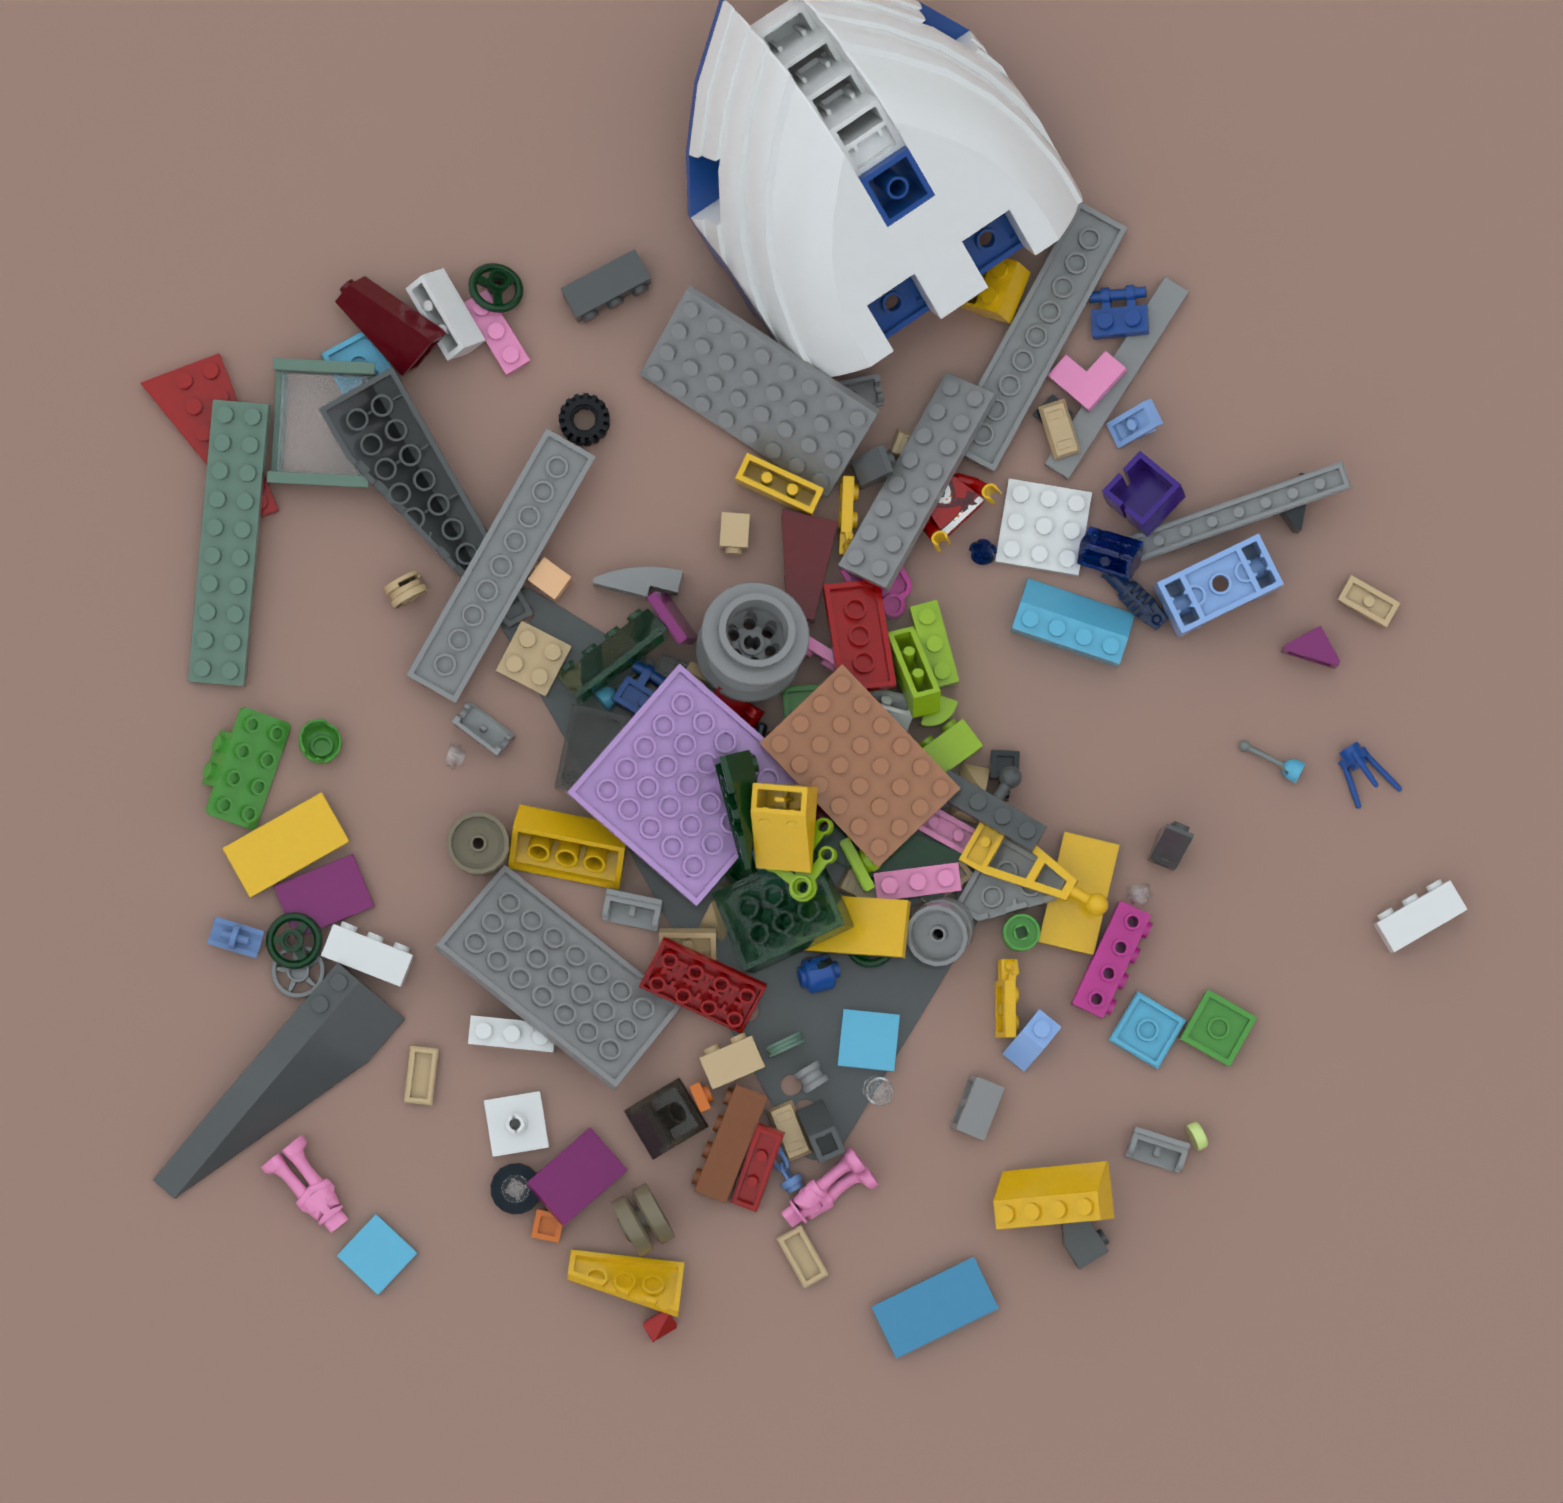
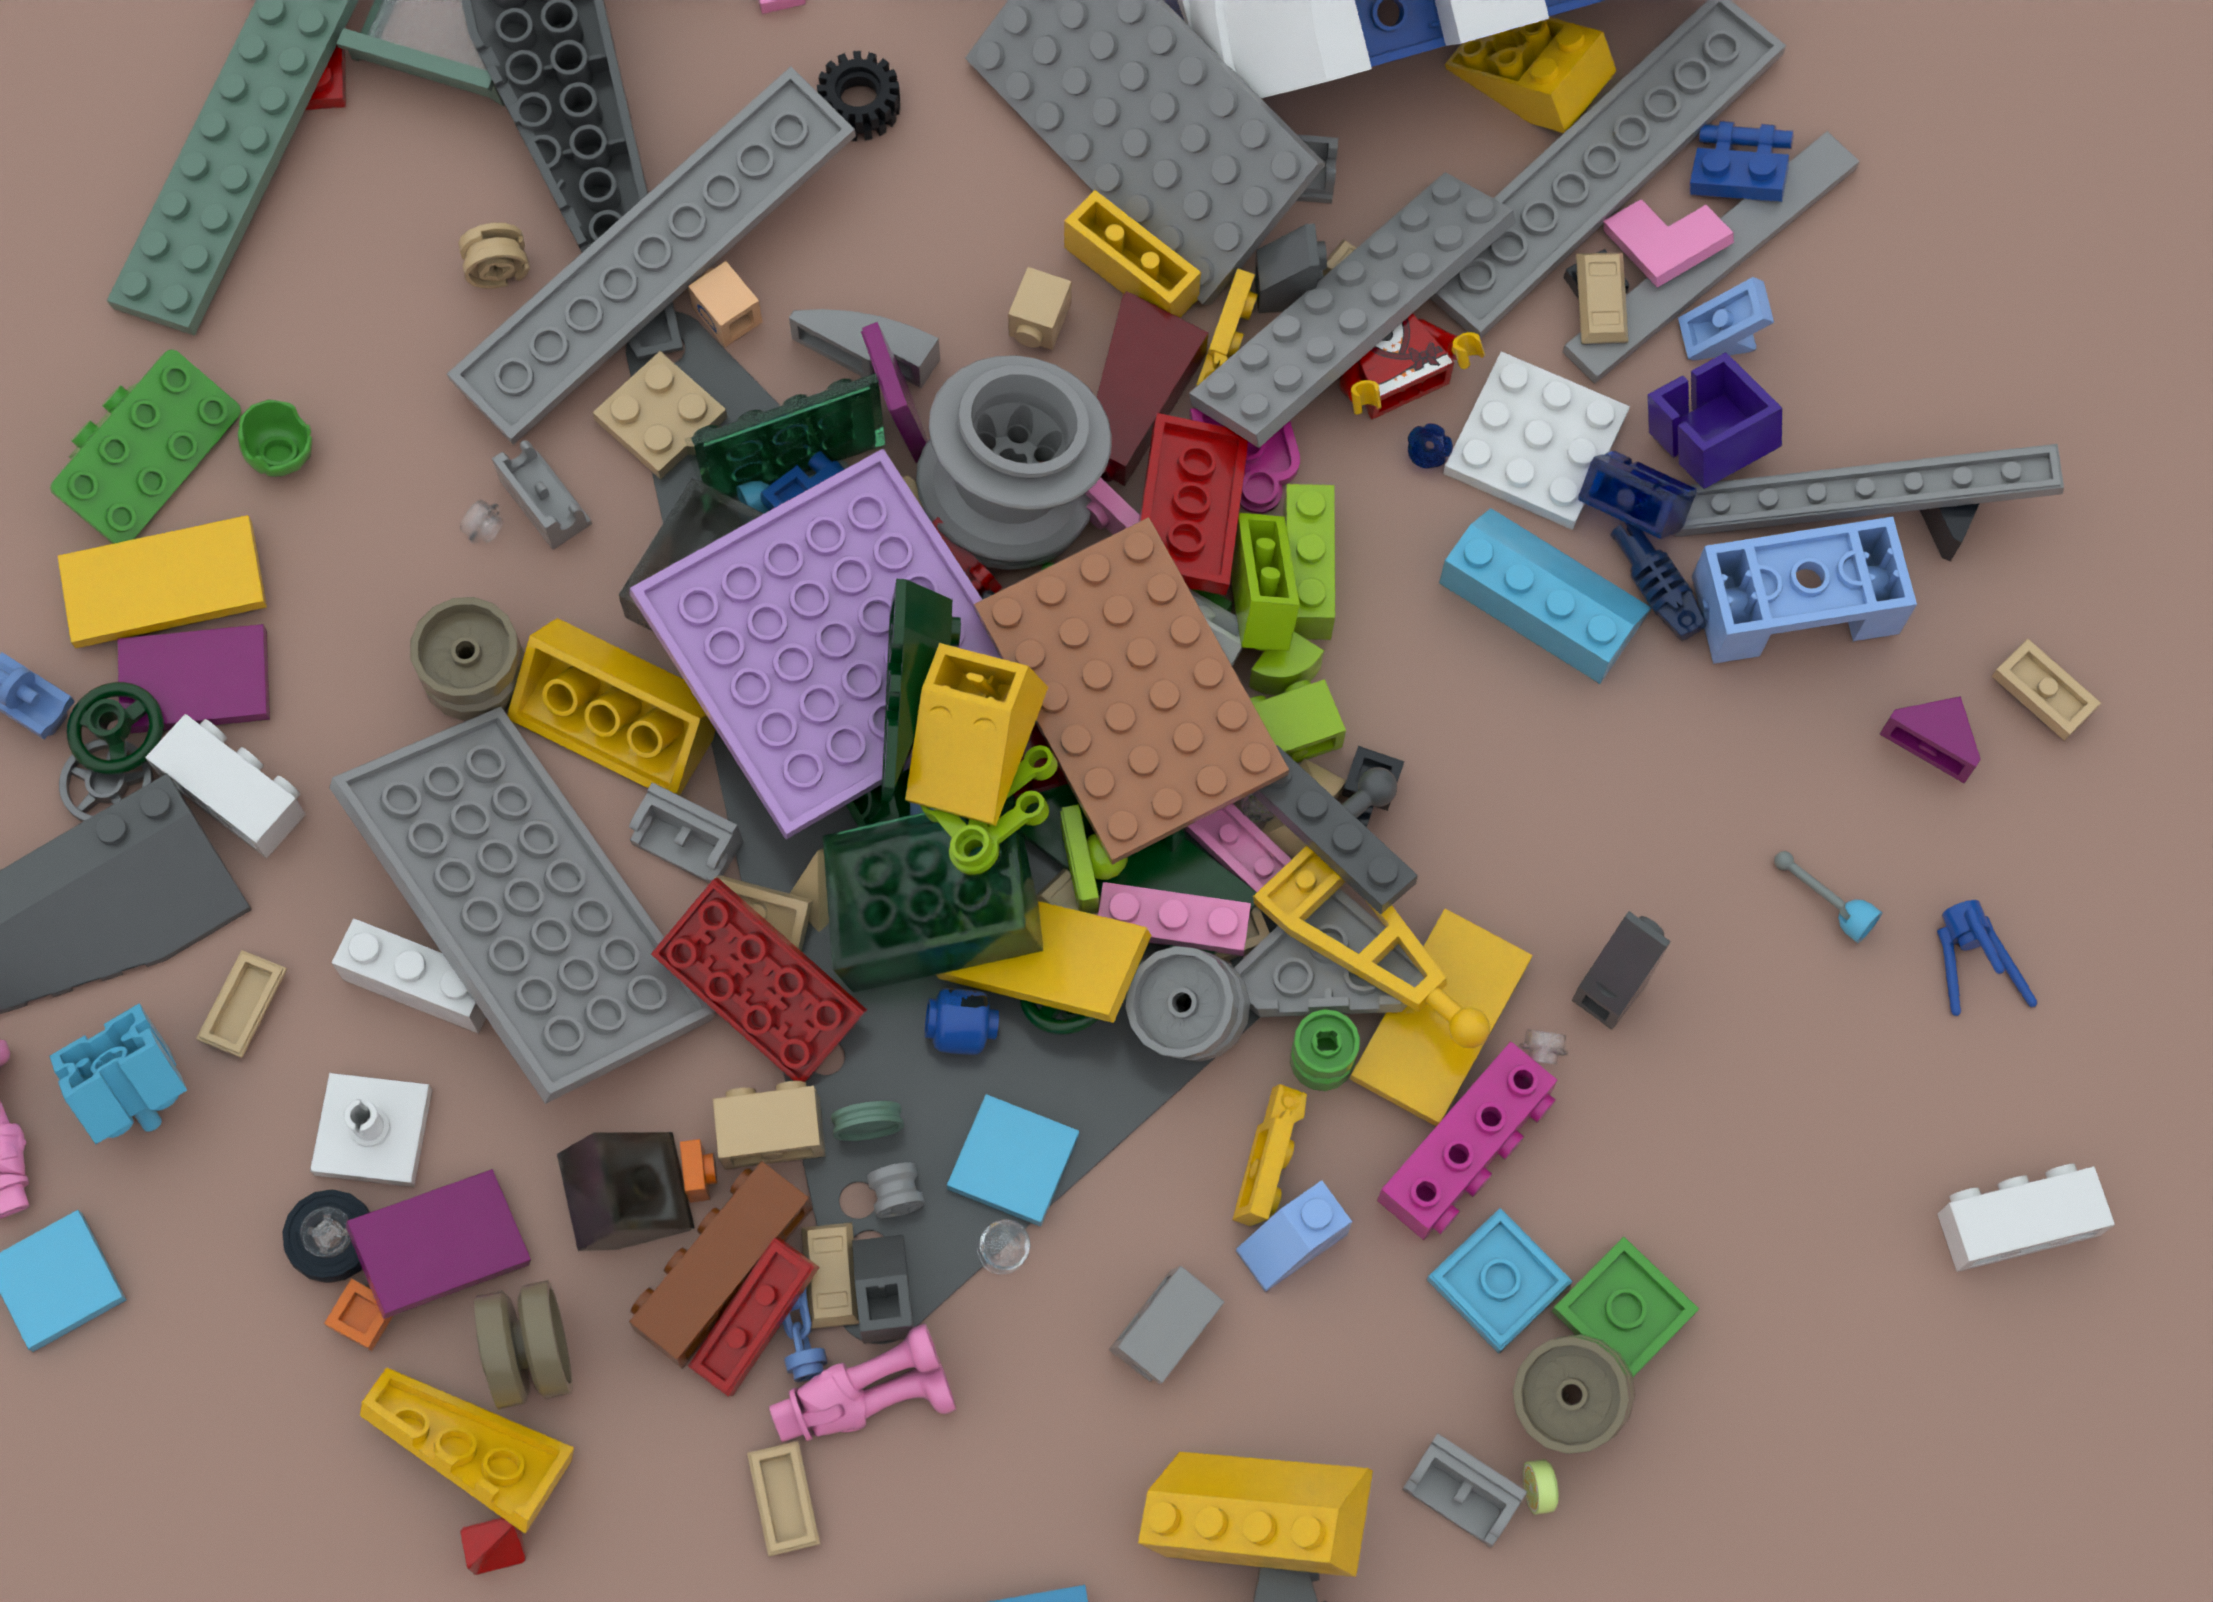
camera: 20 degrees right, 15 degrees down
(374, 1138) = (119, 1076): none -> medium azure brick
(1205, 1068) = (1605, 1389): none -> dark tan wheel

